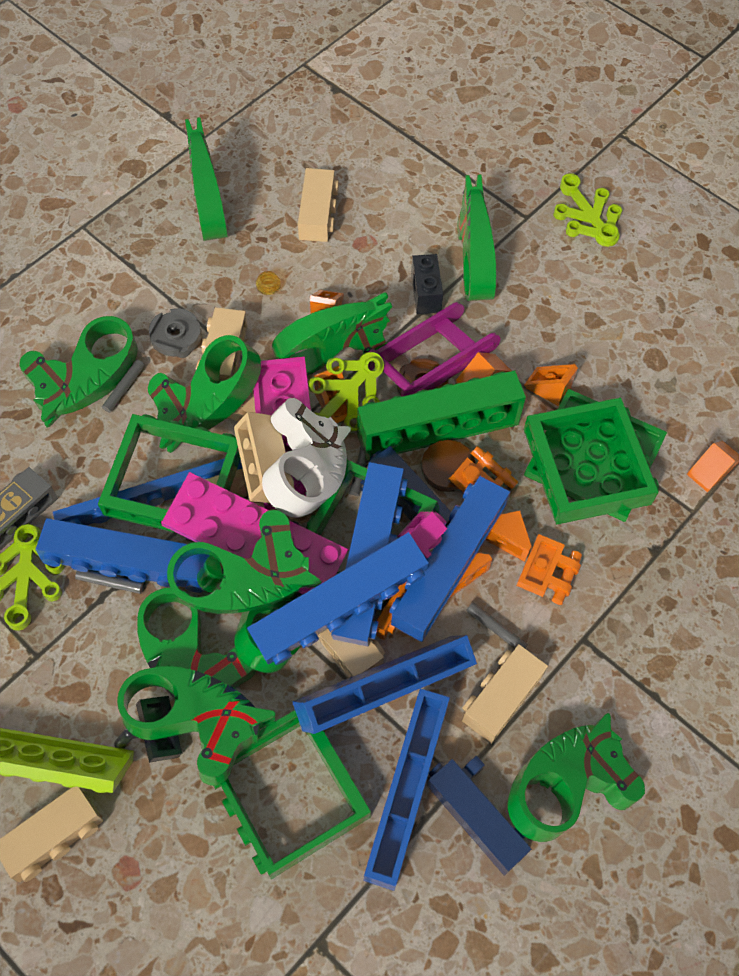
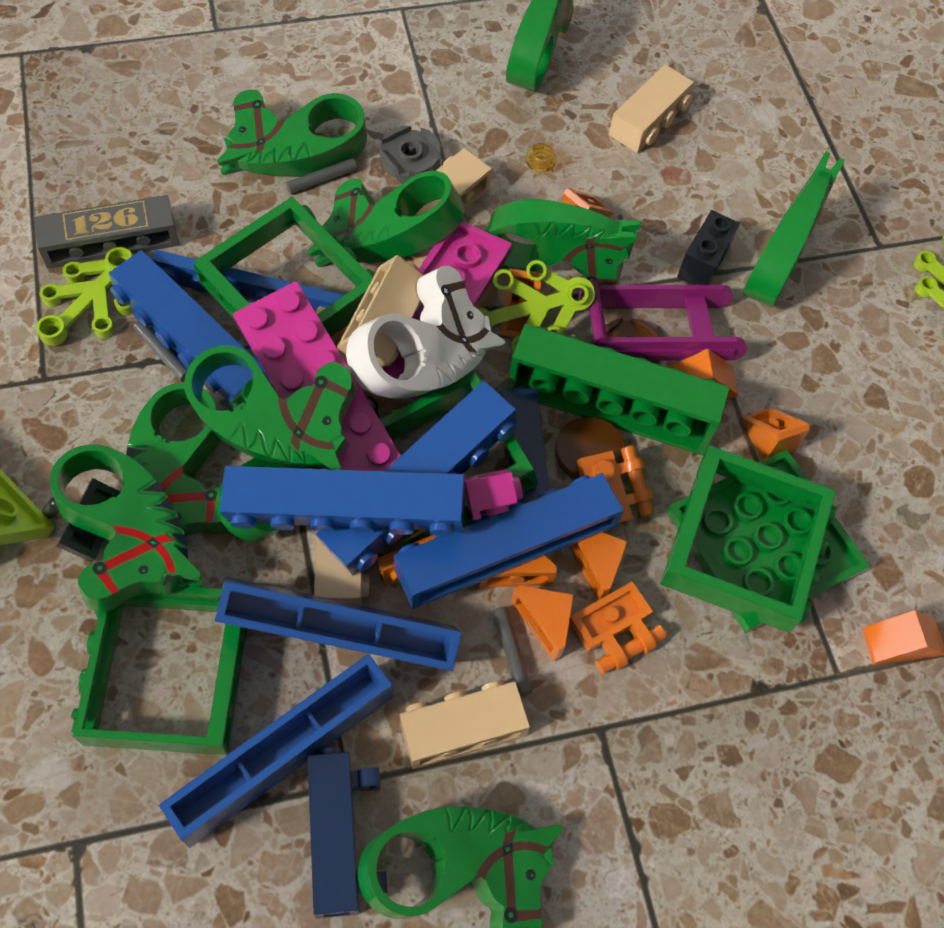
camera: 30 degrees right, 0 degrees up
(504, 591) = (546, 615): none -> orange slope

